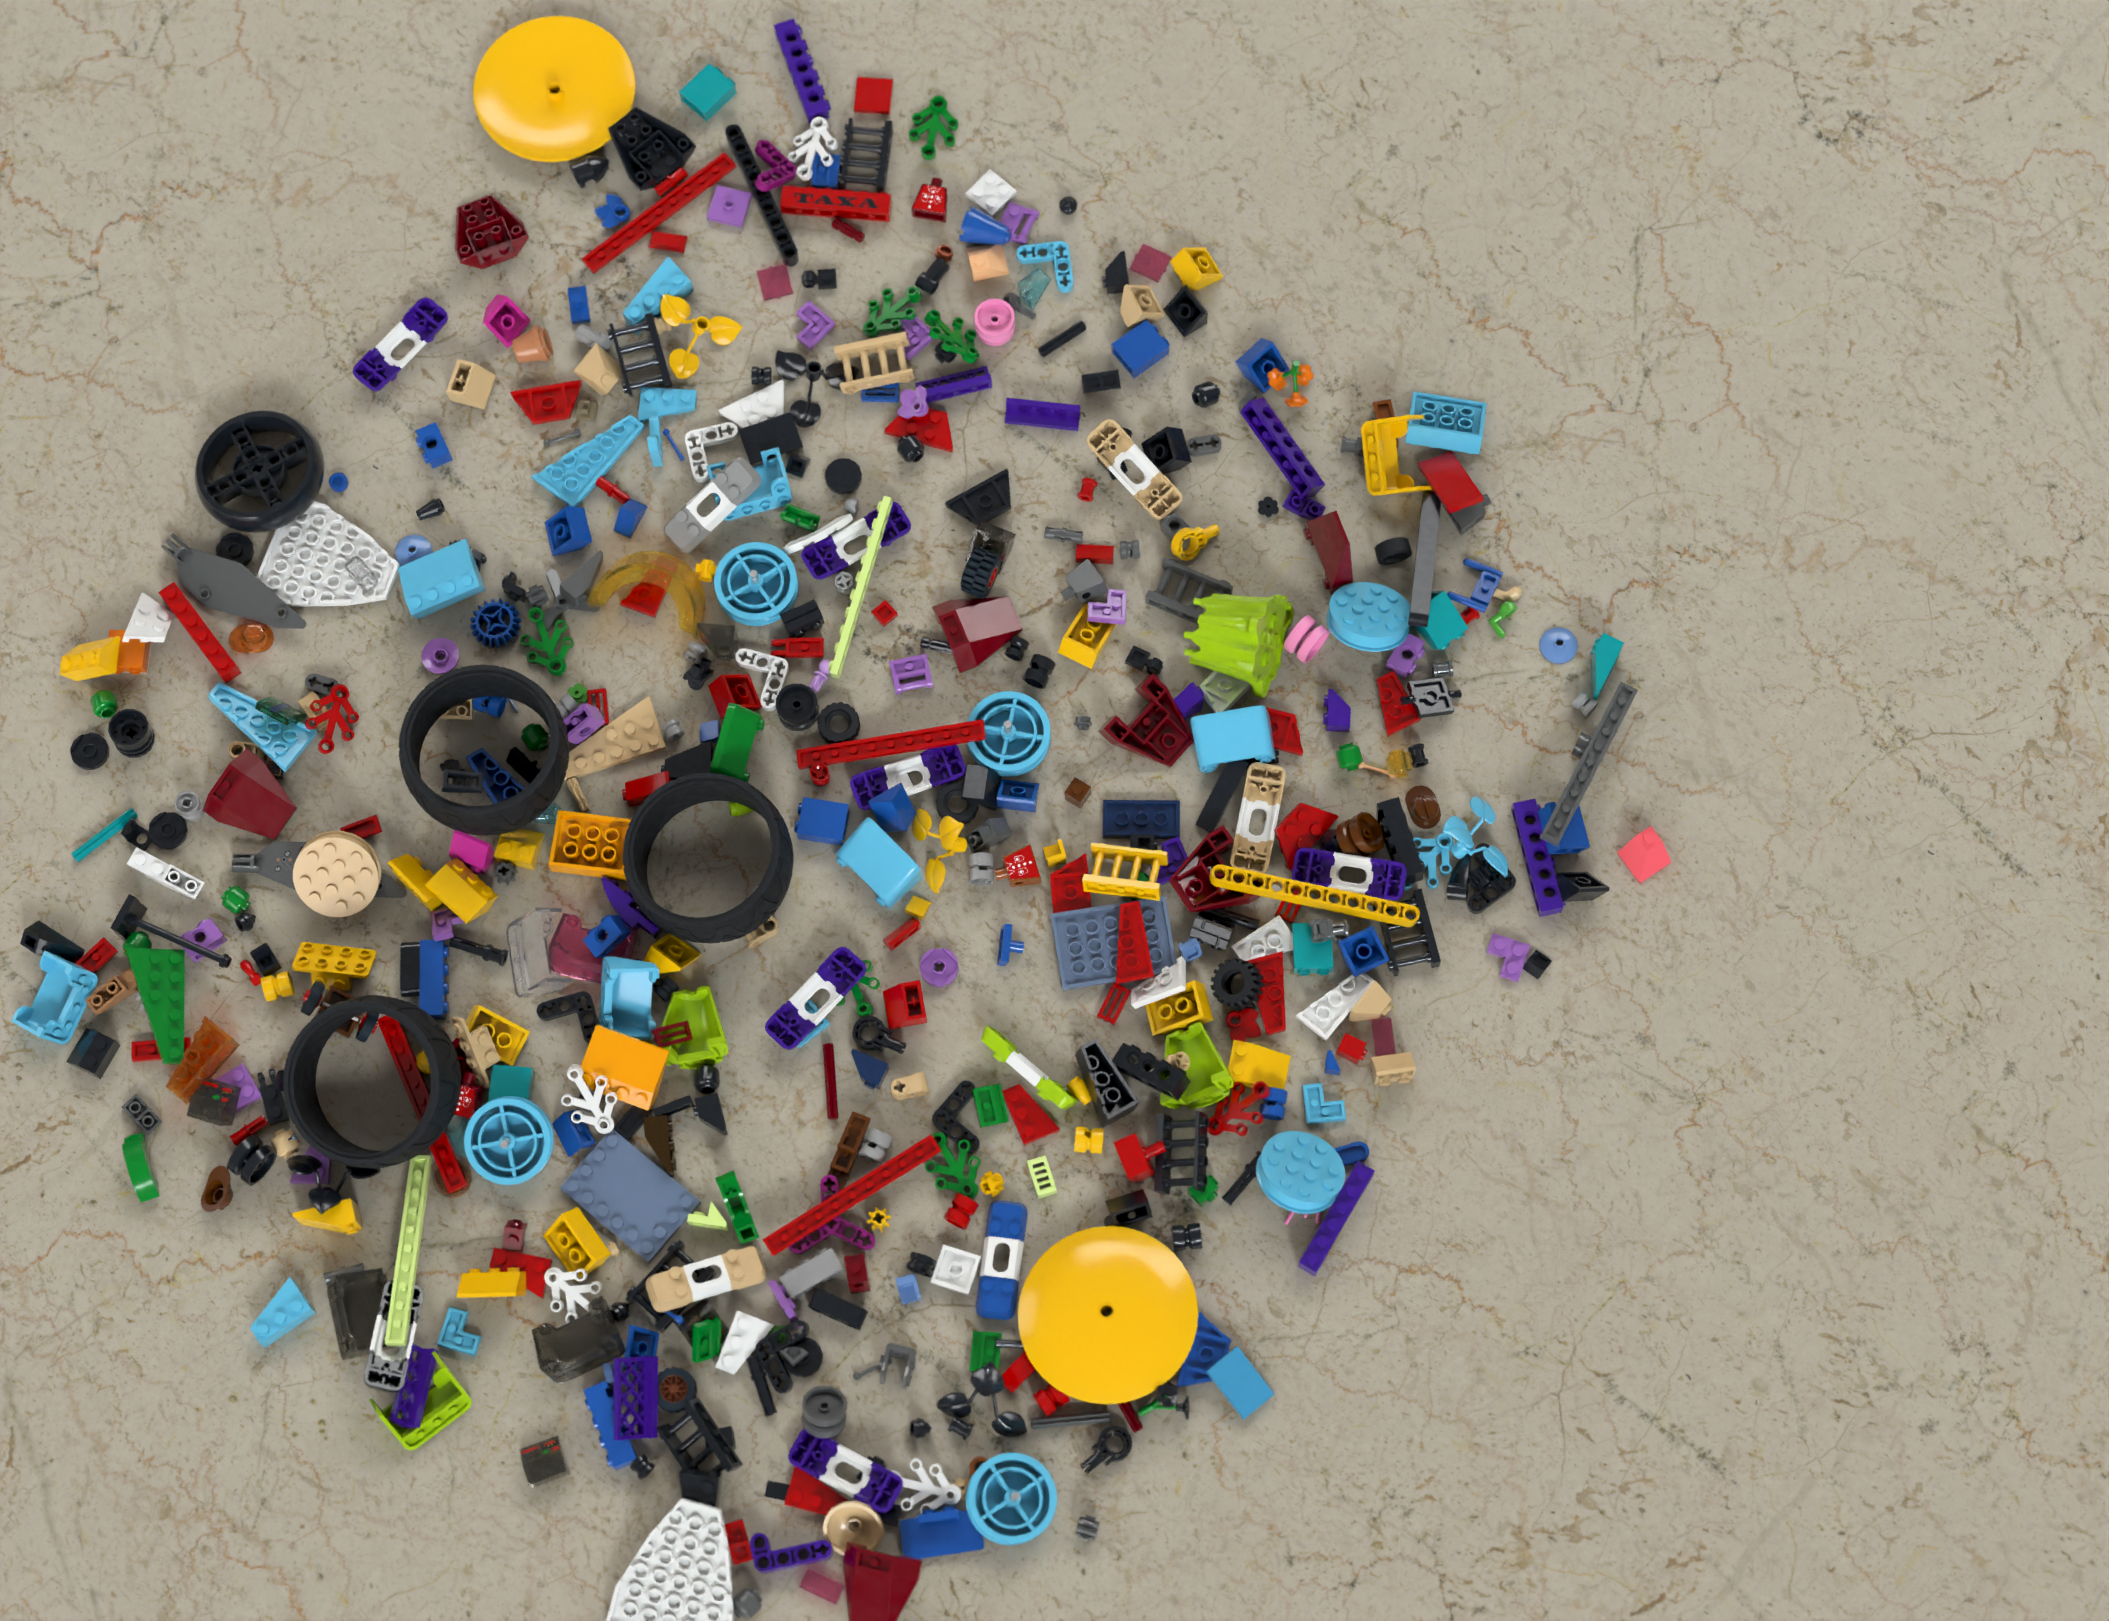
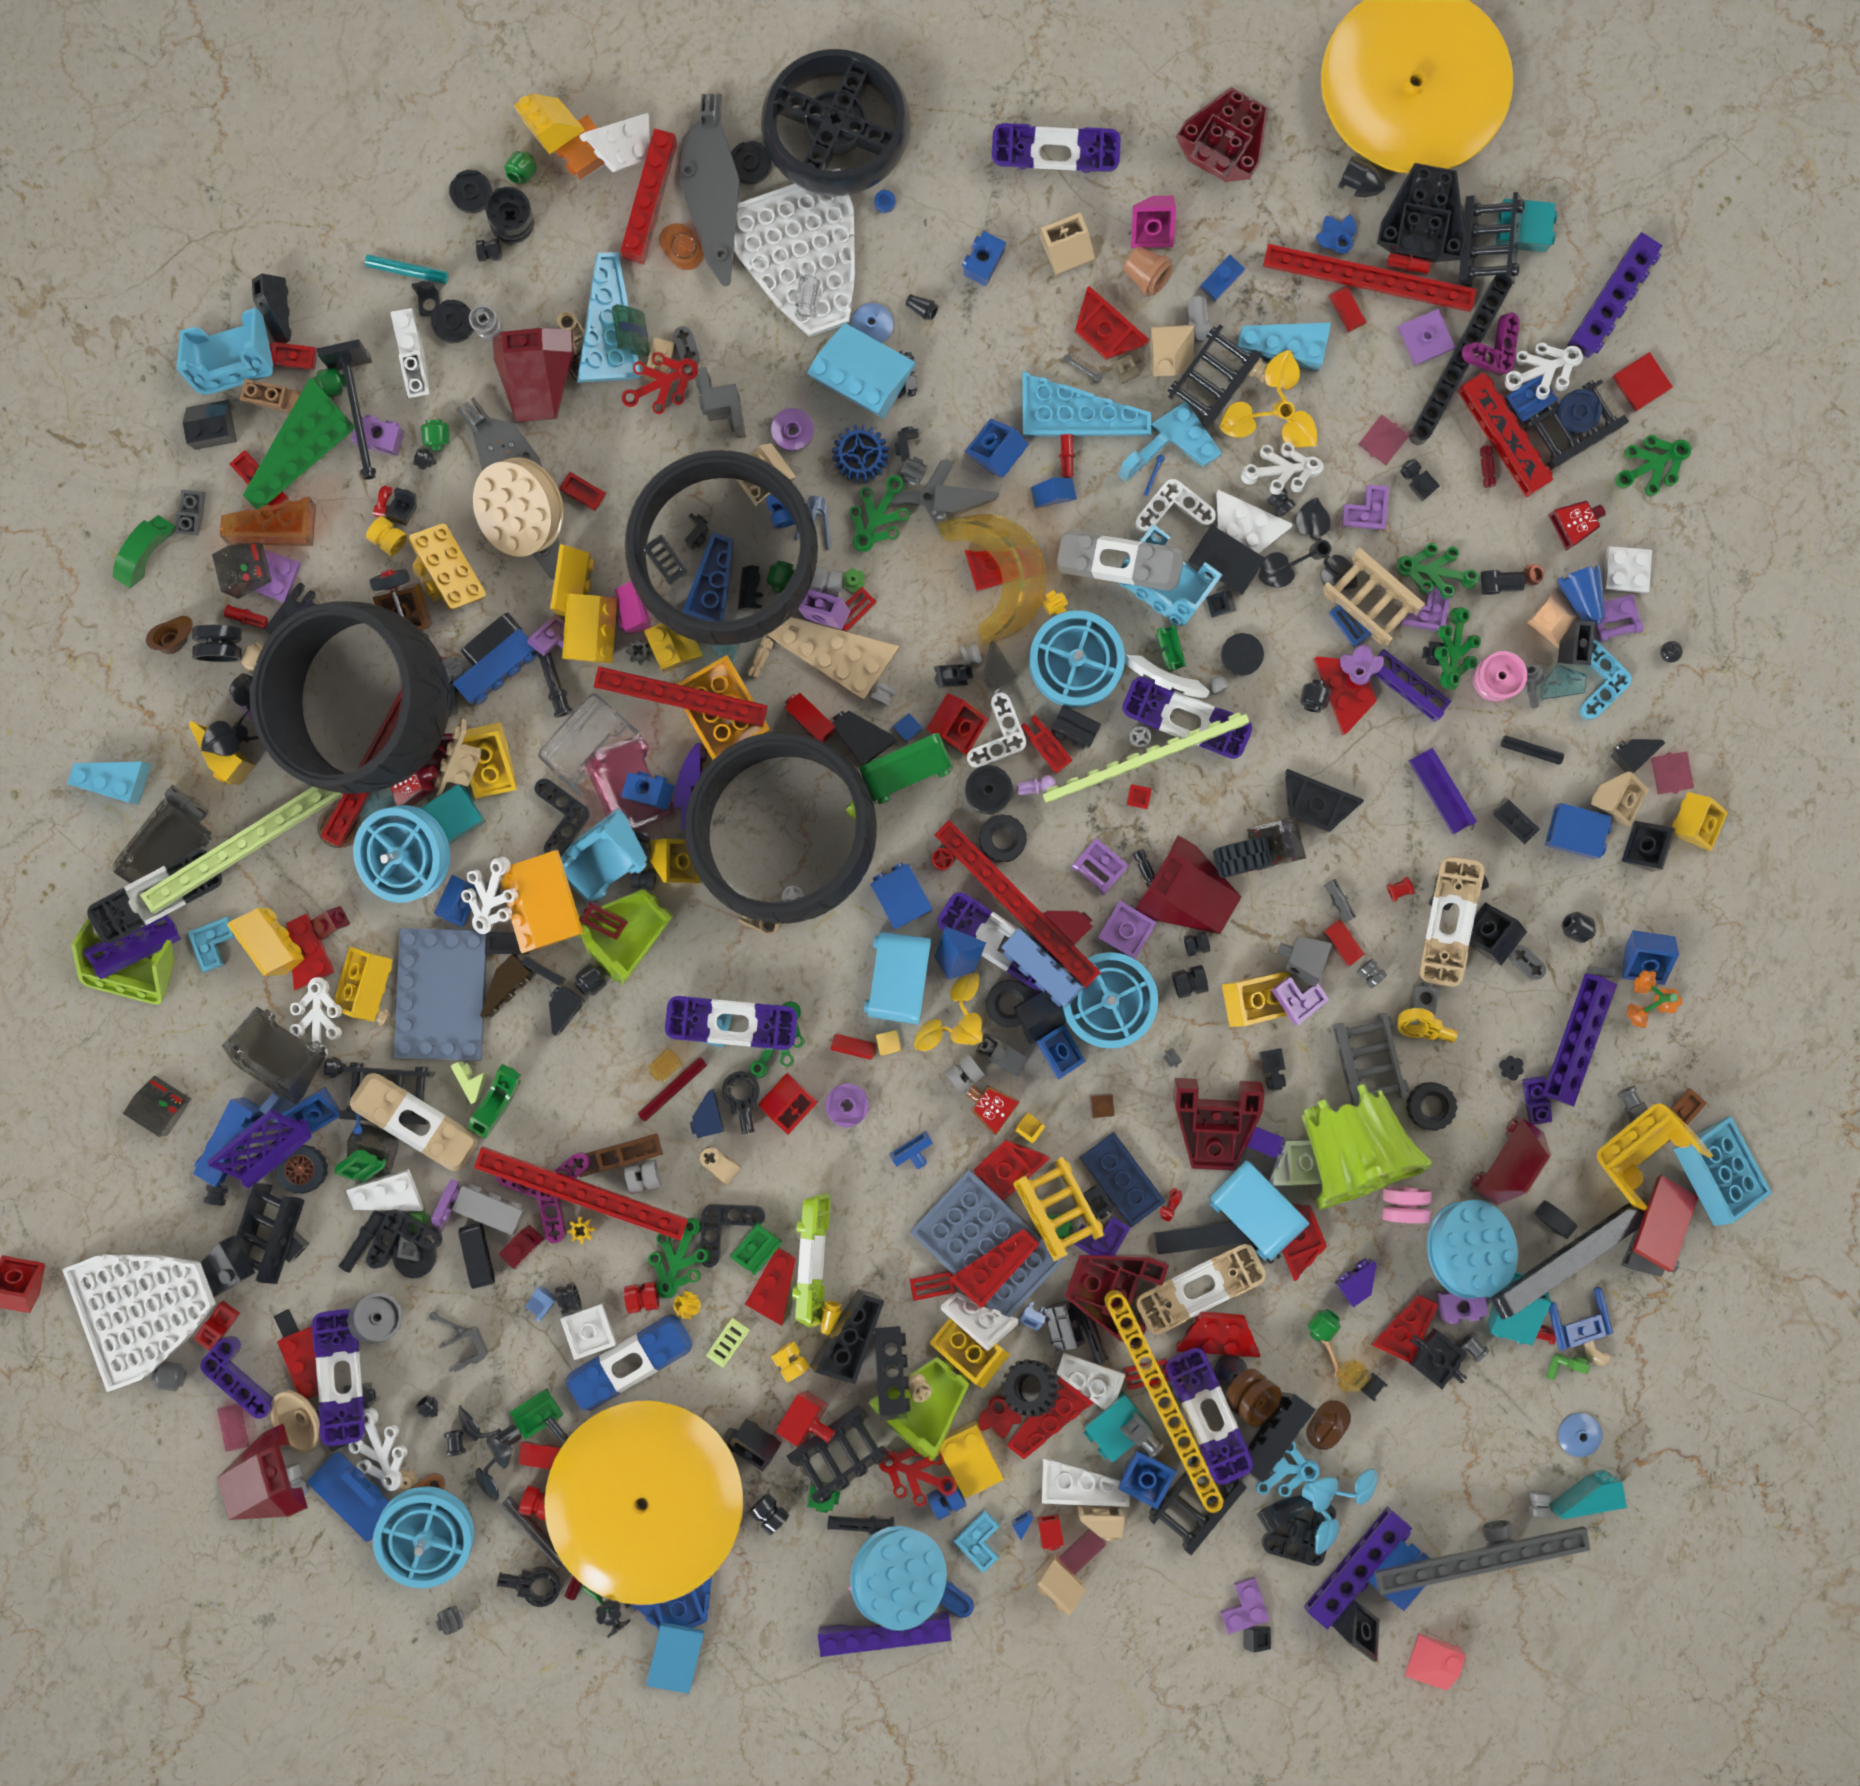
camera: 50 degrees right, 15 degrees up
(144, 764) = (488, 250): none -> black wheel
(382, 687) = (720, 402): none -> dark grey bracket
(560, 862) = (680, 696): none -> red tile
(696, 137) = (1473, 230): none -> black fence
(752, 340) = (1308, 466): none -> white plant
(809, 1071) = (665, 1065): none -> clear yellow brick
(859, 145) = (1579, 410): none -> dark blue tile
(932, 715) = (1071, 923): none -> dark red slope
(949, 756) = (1042, 967): none -> medium blue wedge
(968, 687) = (1127, 930): none -> medium lavender plate
(1013, 258) = (1577, 643): none -> black slope
(1183, 793) = (1167, 1213): none -> red arm
(1252, 562) = (1448, 1106): none -> black tyre

